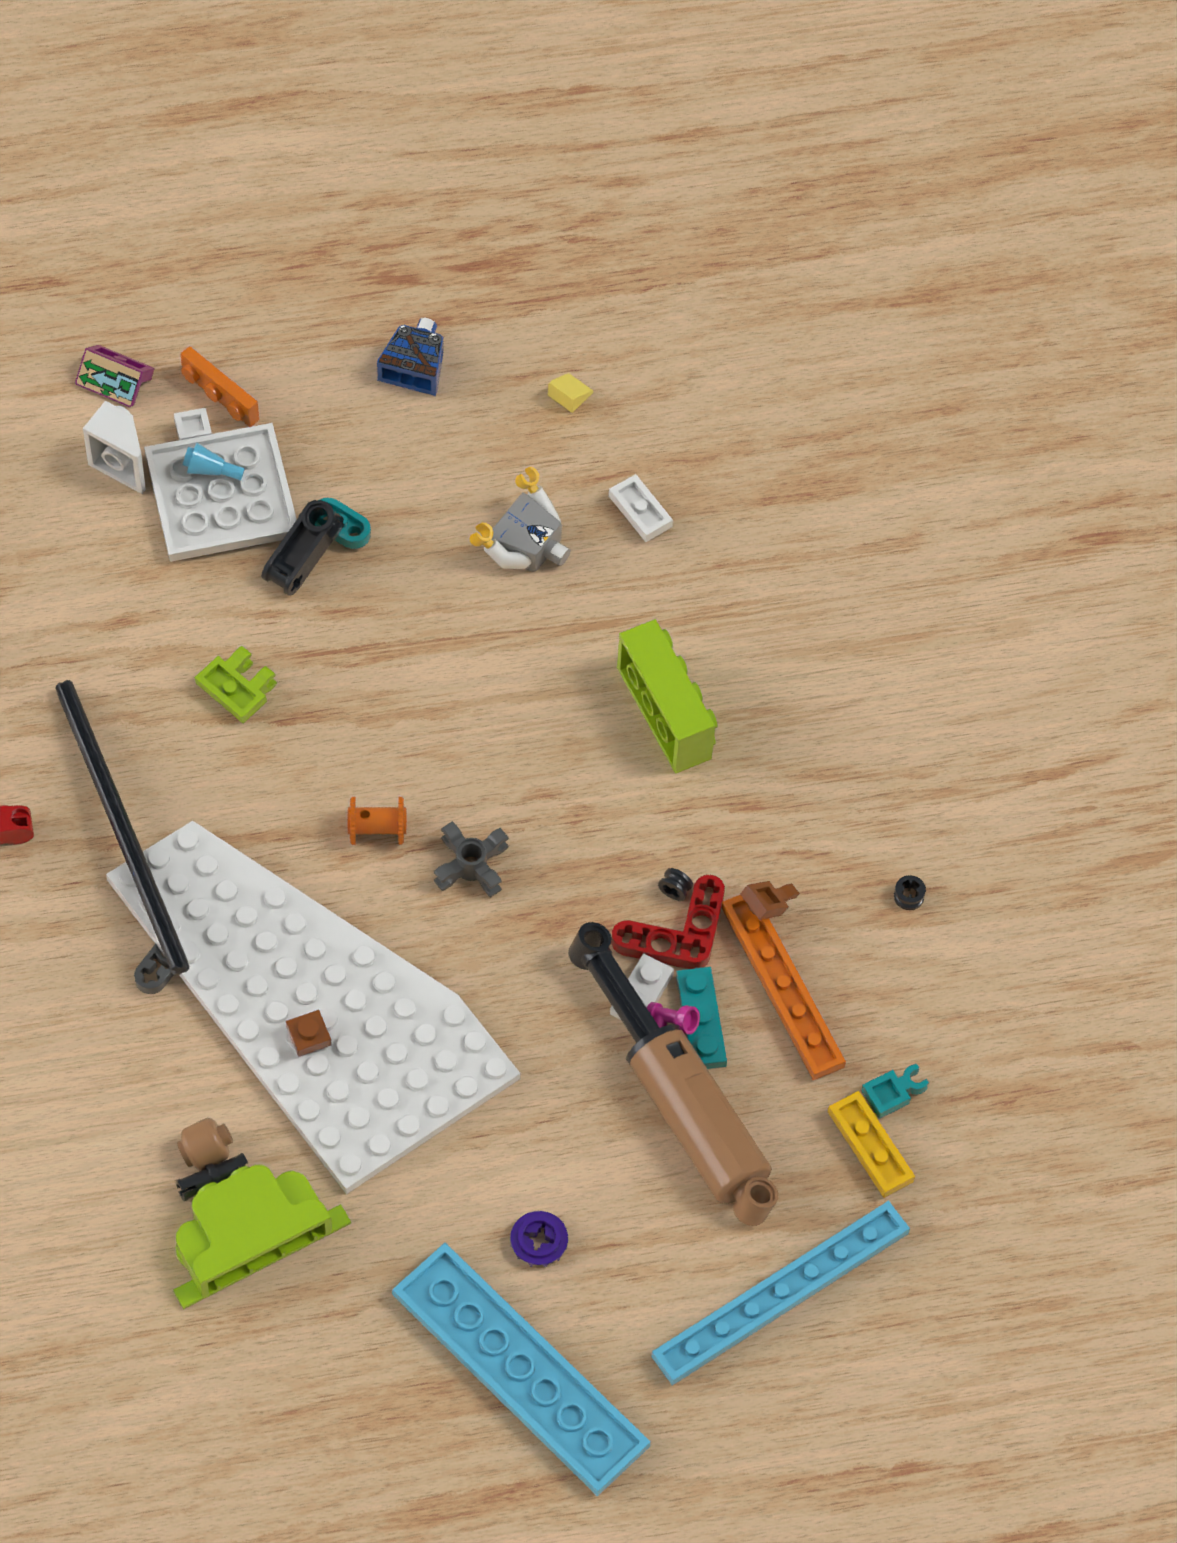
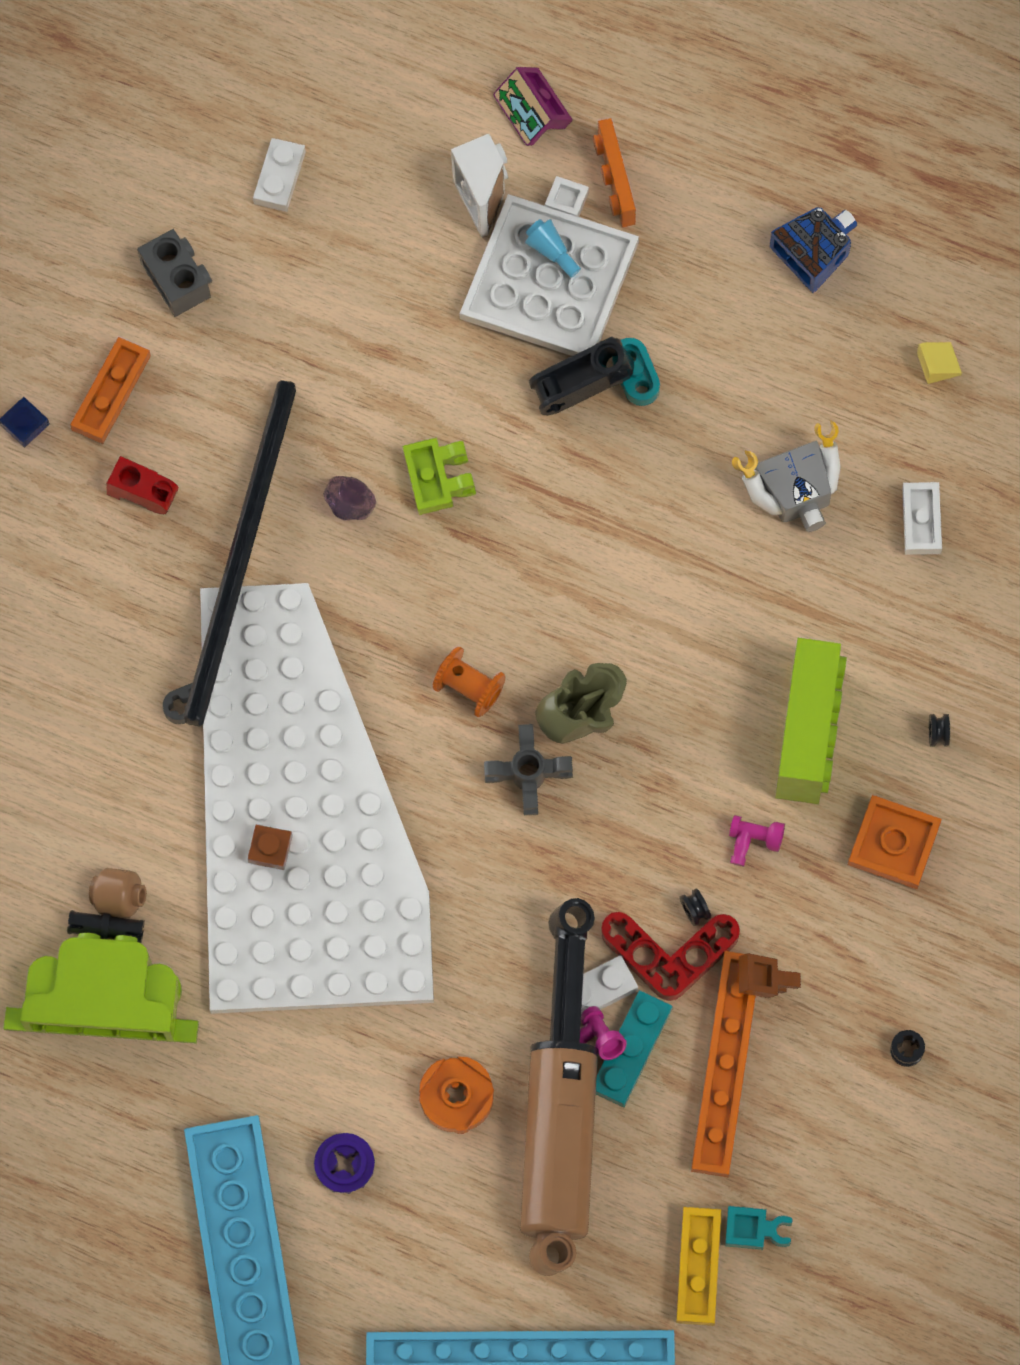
camera: 40 degrees right, 10 degrees up
(179, 739) = (349, 498): none -> plate
(481, 783) = (582, 703): none -> olive head
(590, 1152) = (452, 1073): none -> orange plate
(672, 808) = (744, 831): none -> dark pink piece
(765, 650) = (939, 730): none -> black bush
(791, 750) = (894, 842): none -> orange plate

